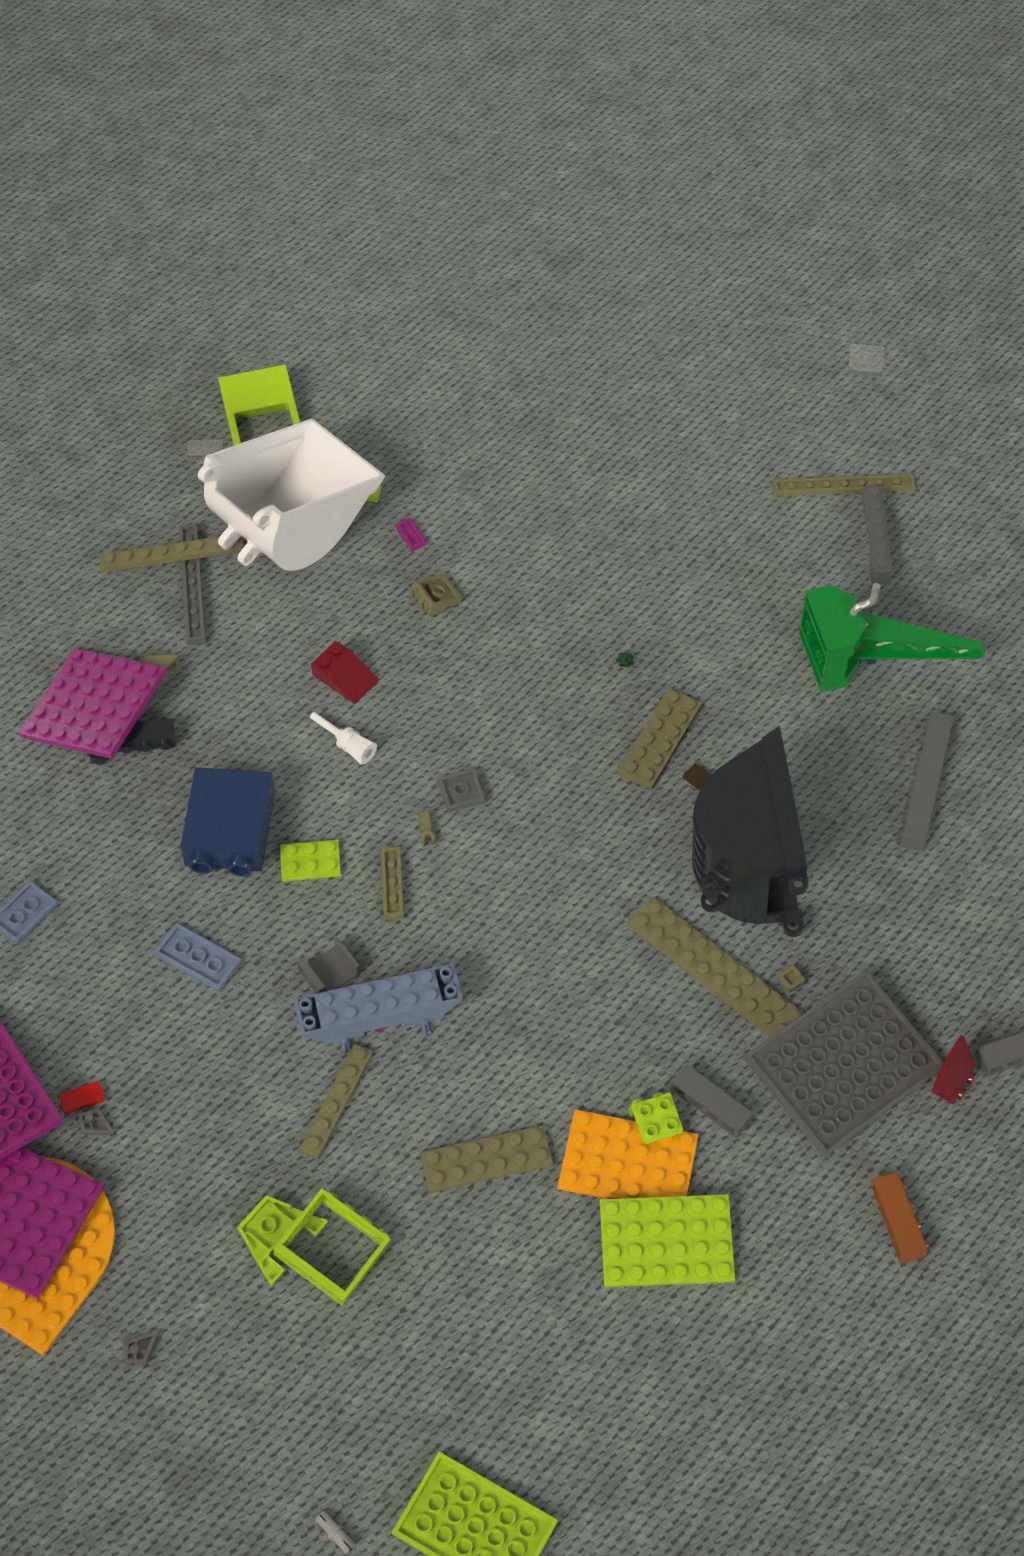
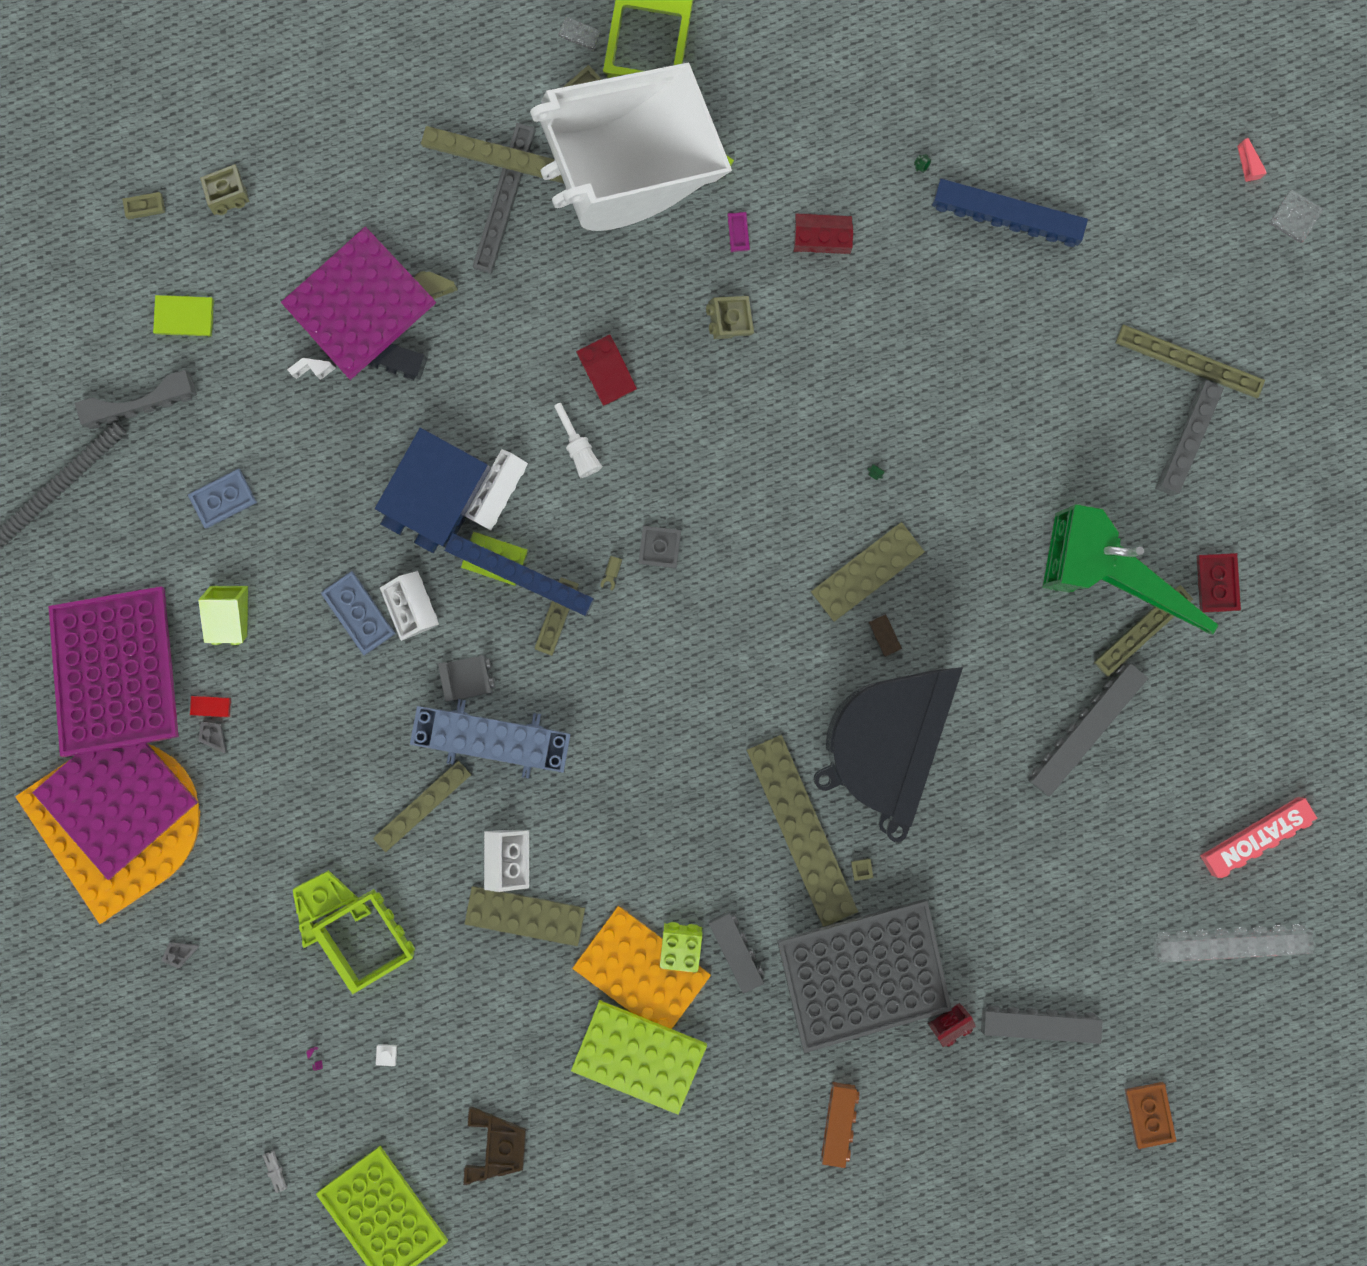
camera: 25 degrees right, 30 degrees up
(66, 1006) = (224, 614): none -> slope
(74, 768) = (319, 367): none -> white slope
(245, 928) = (409, 605): none -> white slope
(287, 800) = (496, 489): none -> white brick
(324, 1383) = (318, 1064): none -> magenta piece
(341, 855) = (519, 574): none -> dark blue brick
(405, 1356) = (386, 1055): none -> white plate
(443, 1111) = (506, 860): none -> white slope
(485, 509) = (823, 233): none -> dark red slope
(542, 432) = (922, 163): none -> dark green plate
(572, 1395) = (503, 1150): none -> dark brown wing
(633, 438) = (1009, 212): none -> dark blue brick
(809, 339) = (1251, 163): none -> coral slope
(924, 696) = (1135, 637): none -> olive plate
(967, 622) = (1218, 582): none -> dark red plate

